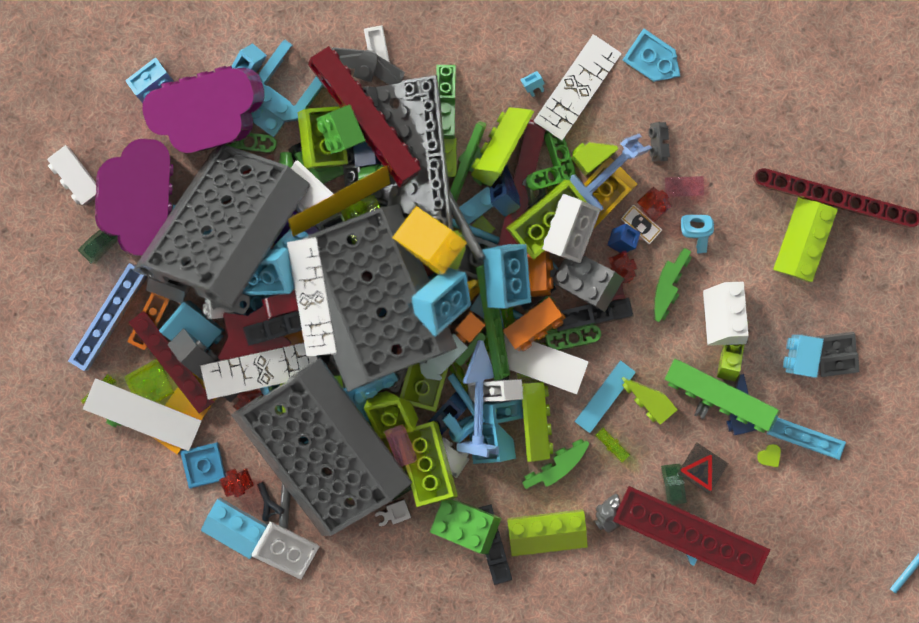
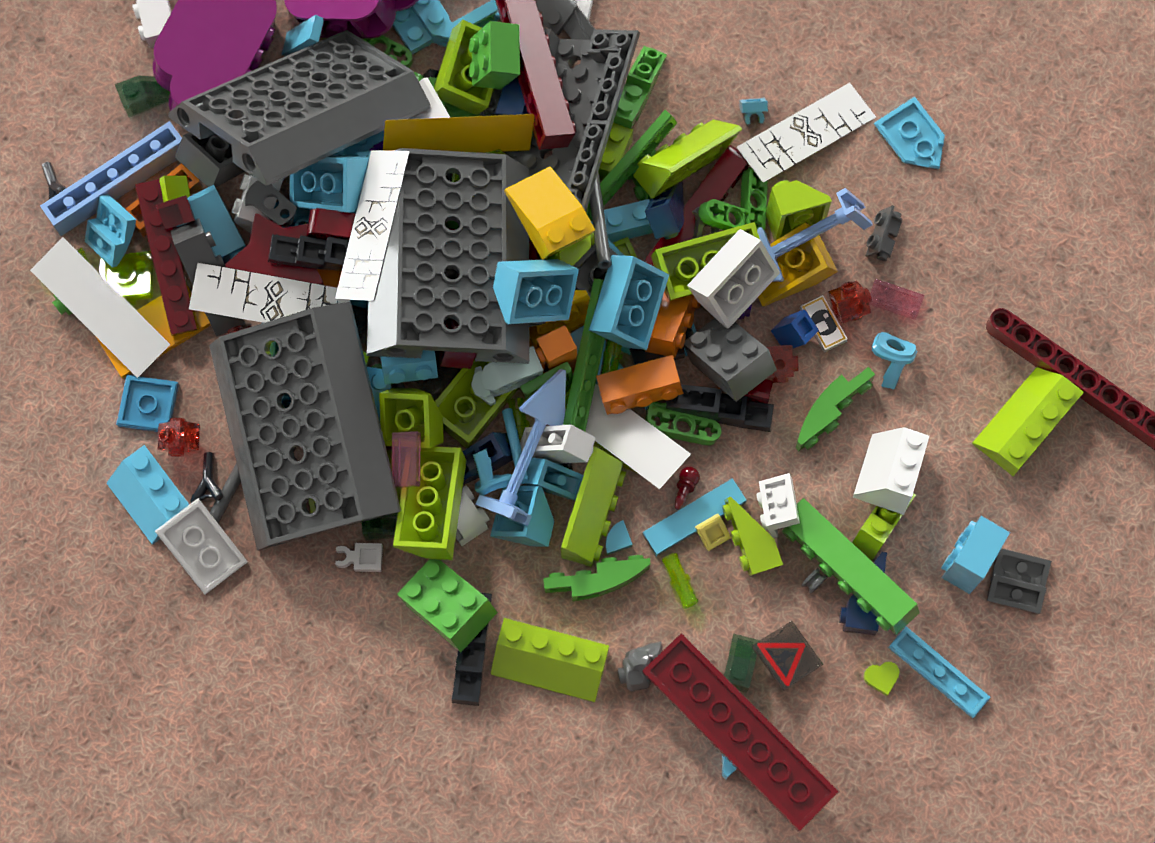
camera: 20 degrees right, 15 degrees down
(70, 341) = (53, 186): none -> black piece
(123, 357) = (110, 231): none -> medium azure slope
(157, 314) = (174, 187): none -> lime tile
(166, 332) = (175, 212): none -> dark red panel
(194, 162) = (303, 35): none -> medium azure tile
(559, 432) = (618, 538): none -> medium azure tile
(591, 372) = (687, 481): none -> dark red bar
(621, 403) = (713, 532): none -> light yellow tile
(659, 369) = (778, 503): none -> white bracket

